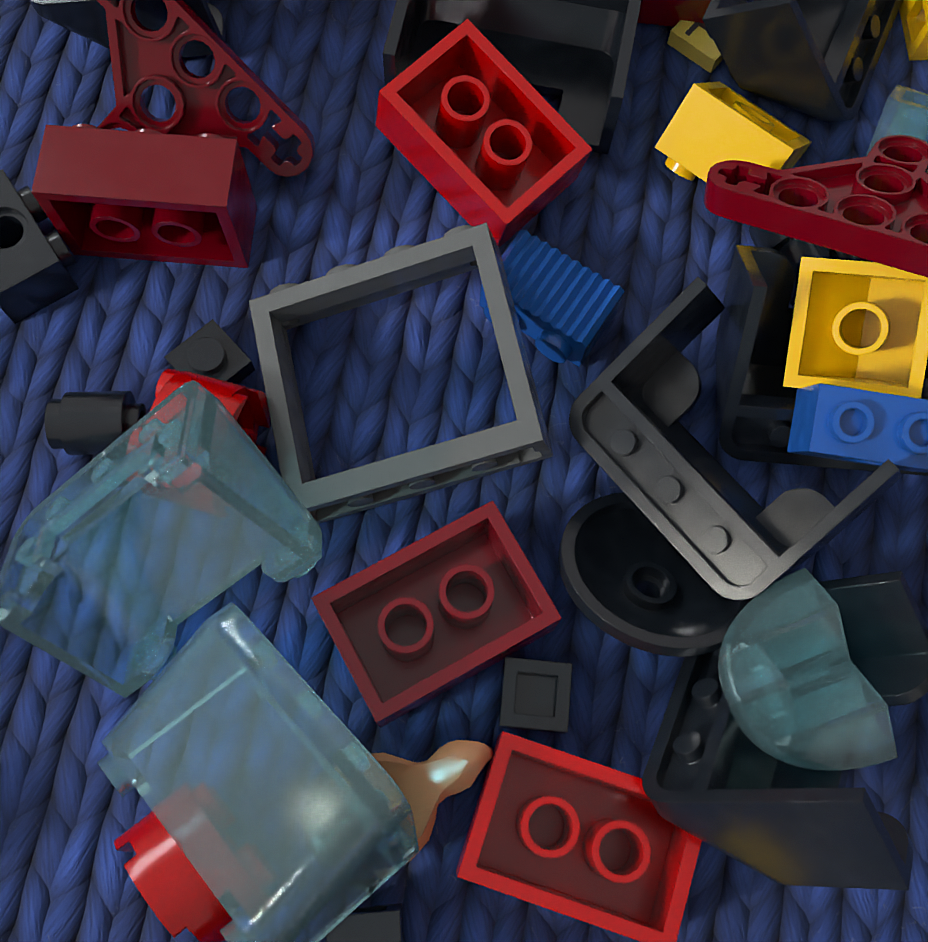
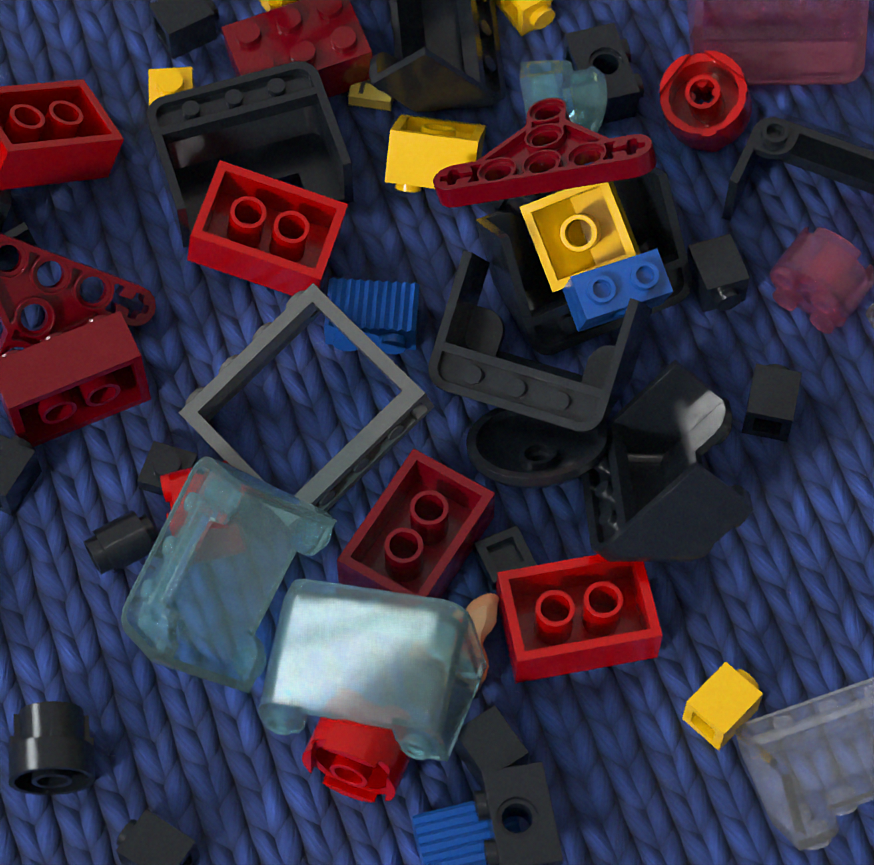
camera: 25 degrees left, 10 degrees down
(795, 683) = (646, 448): clear light blue brick -> none

